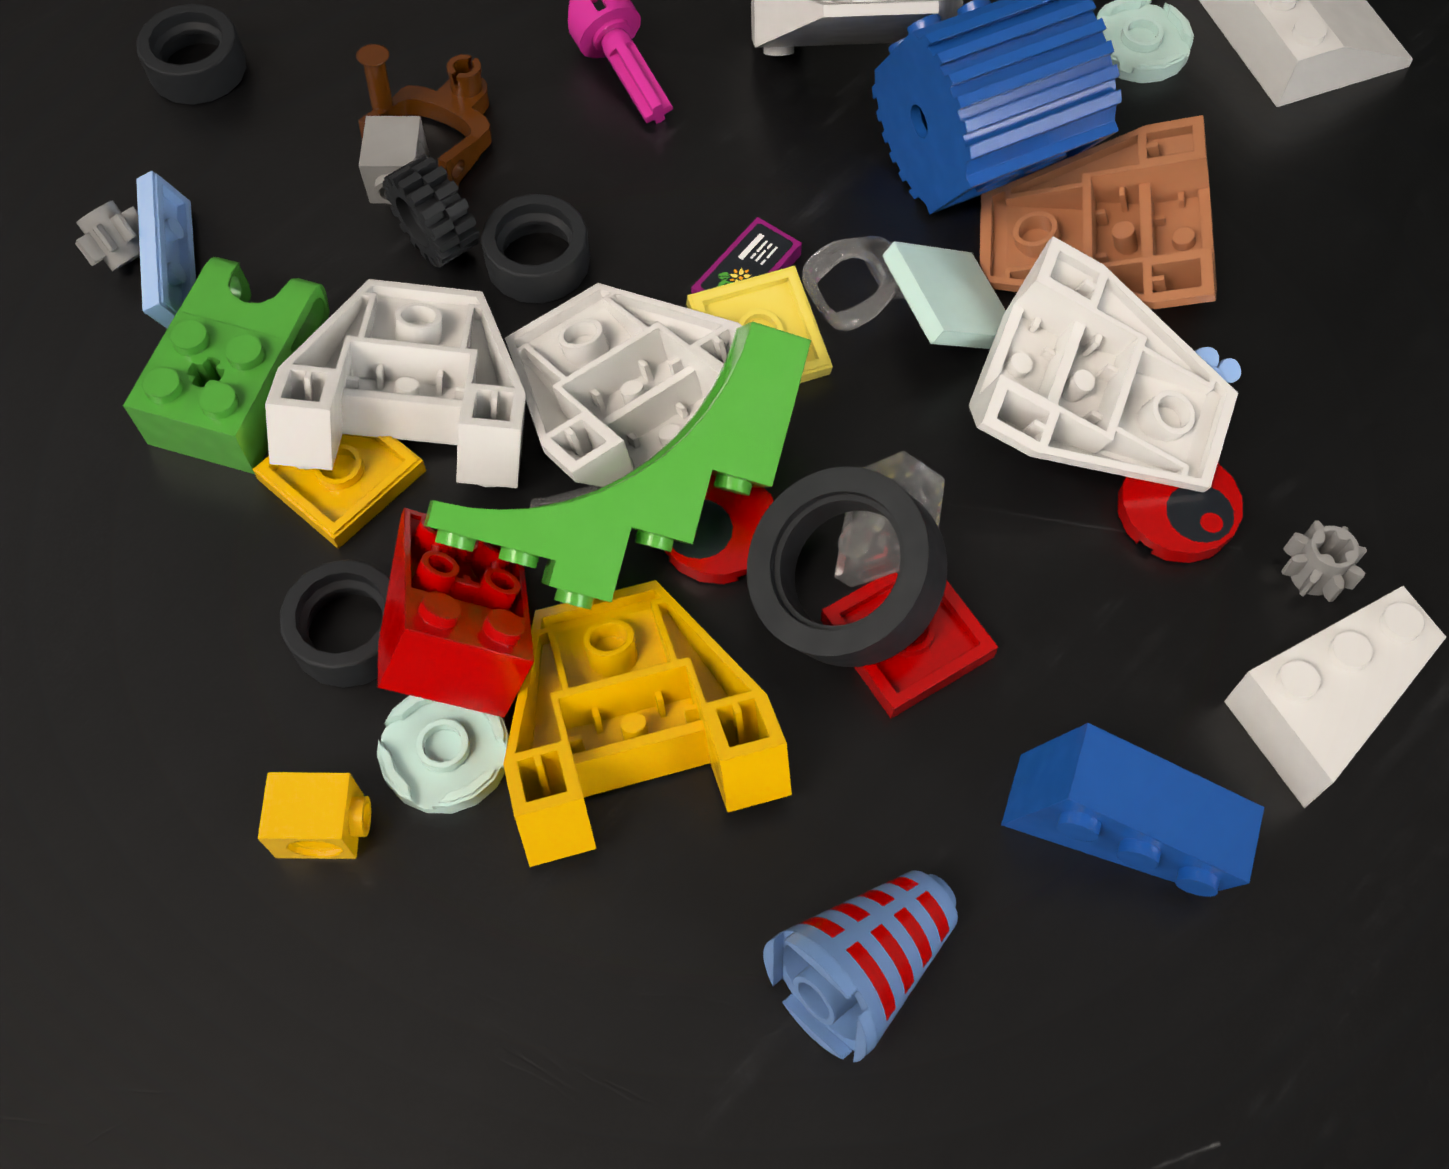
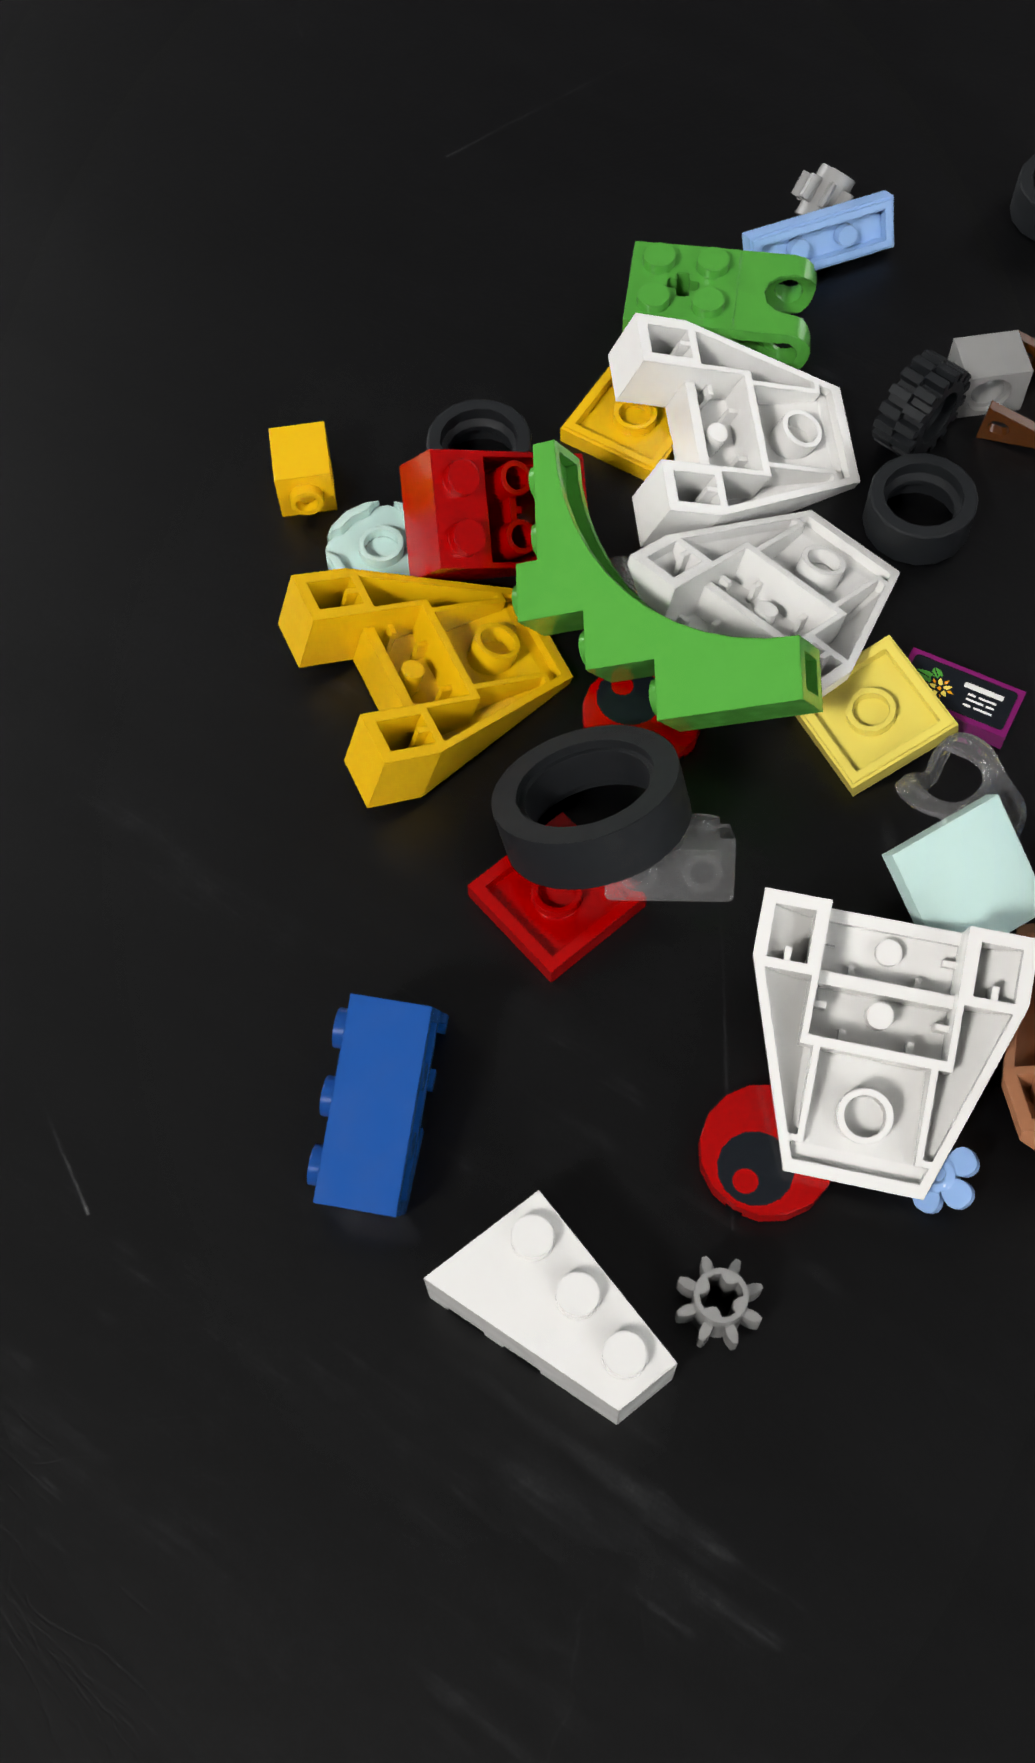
camera: 85 degrees right, 0 degrees up
(861, 960) = (215, 874): medium blue cone -> none

